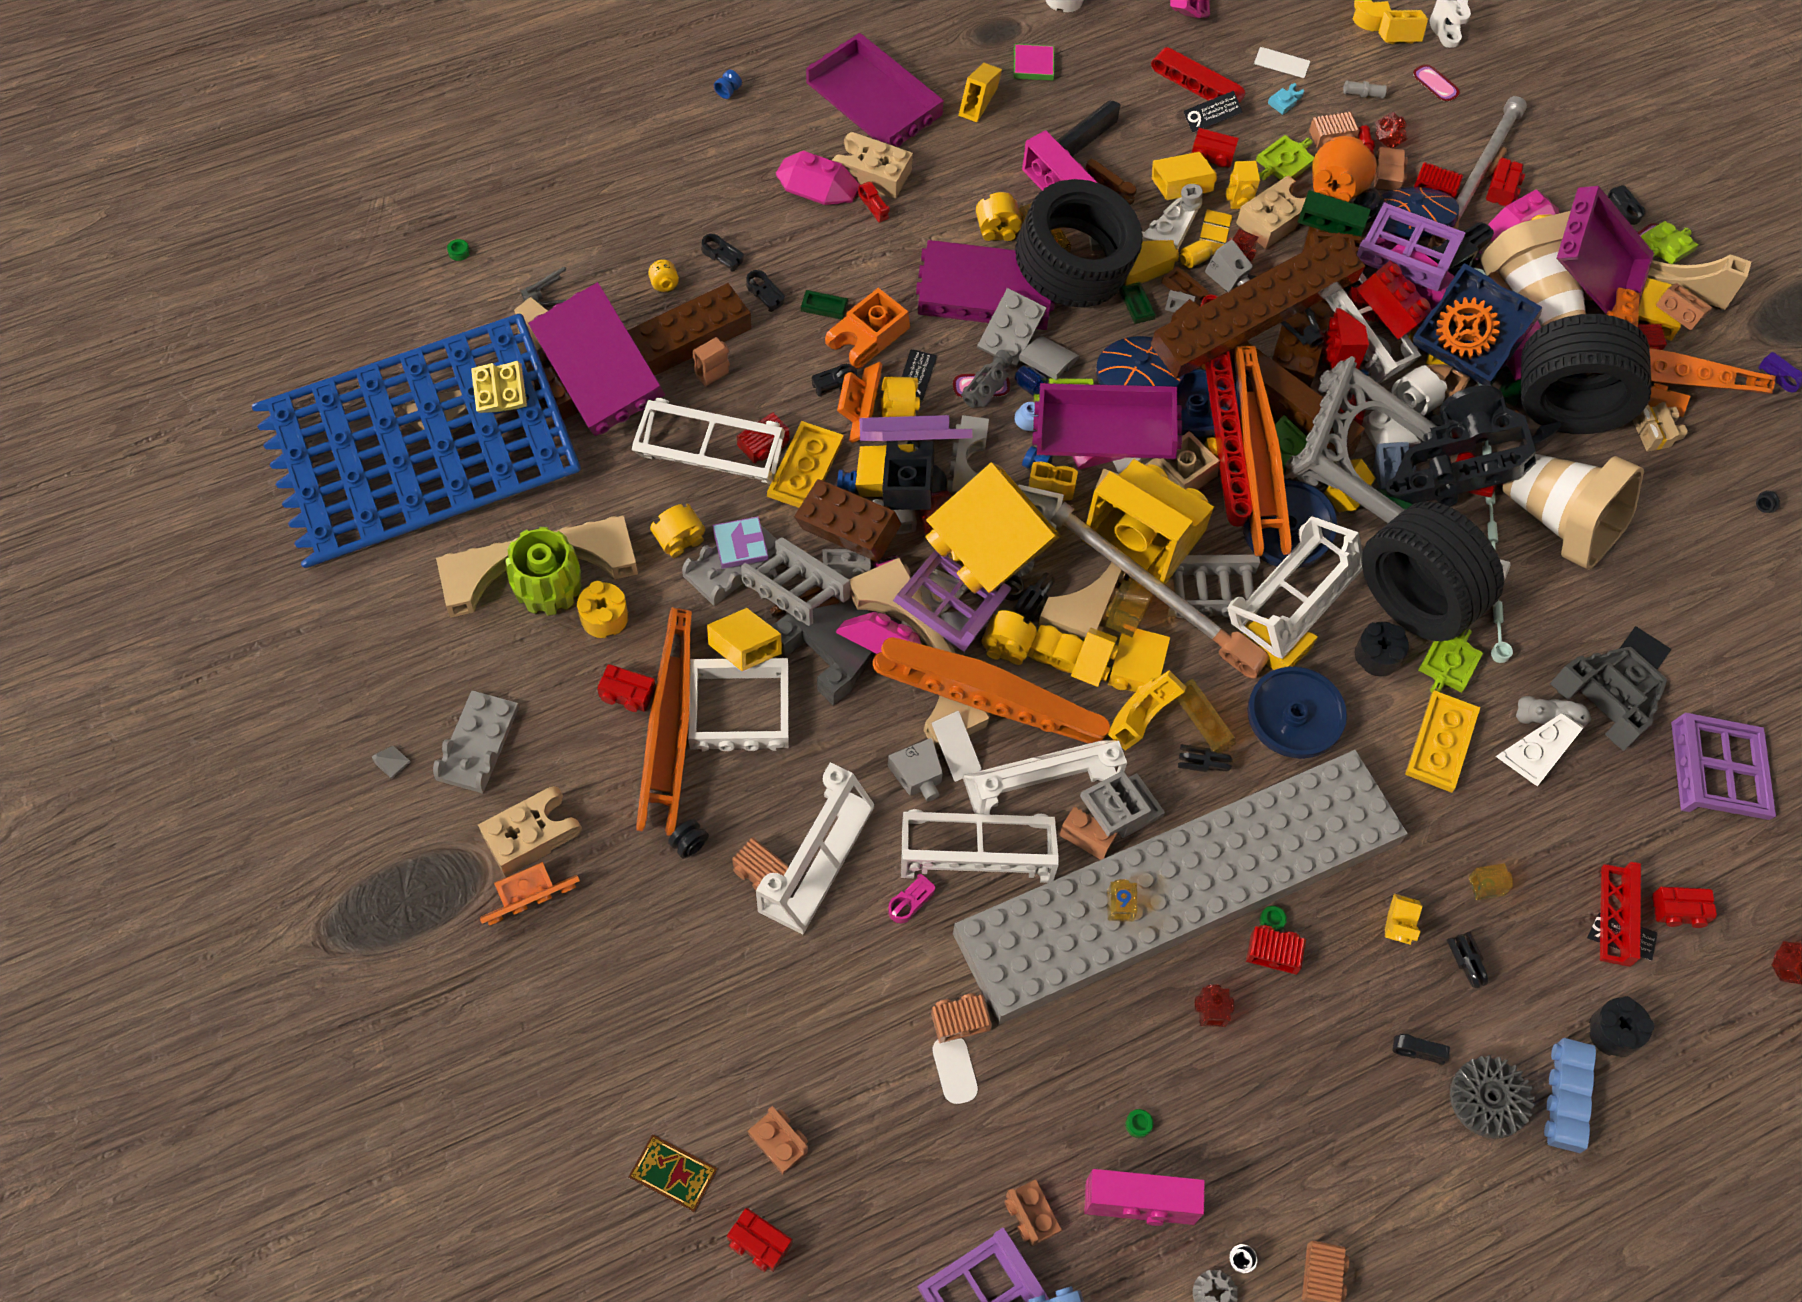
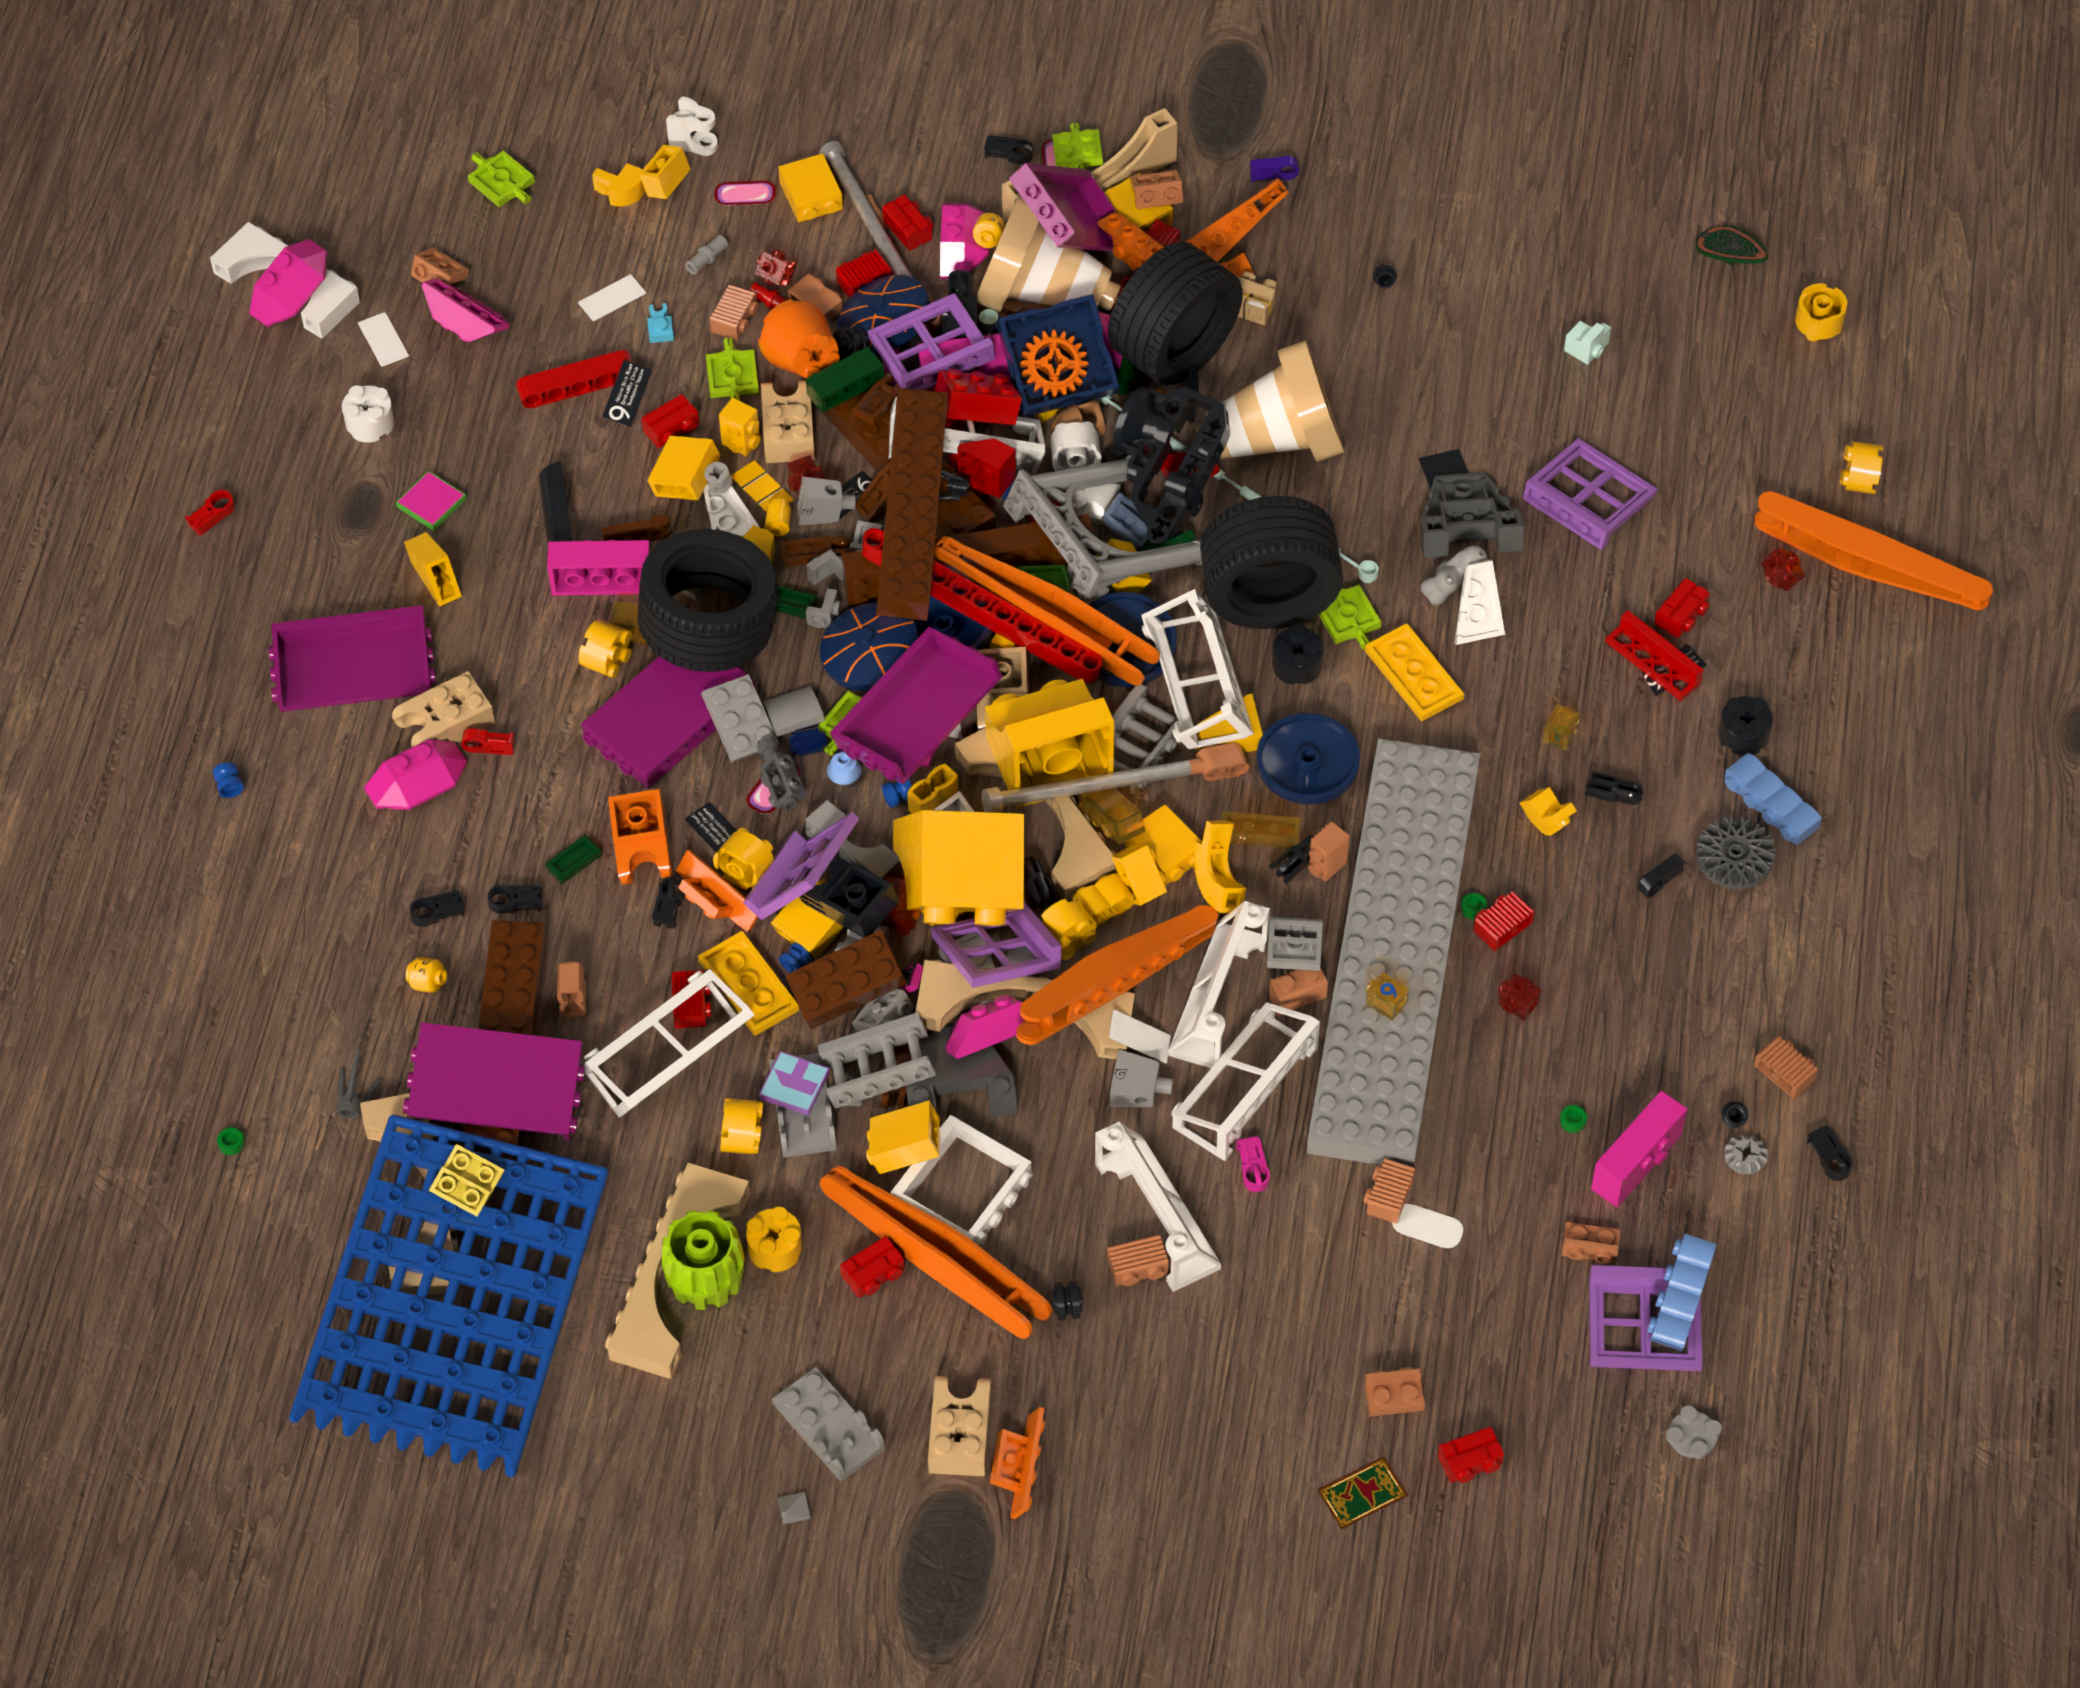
camera: 50 degrees left, 5 degrees down
(1146, 327) = (824, 616): none -> light grey bracket
(1224, 777) = (1328, 851): none -> nougat brick
(1475, 112) = (810, 188): none -> yellow brick

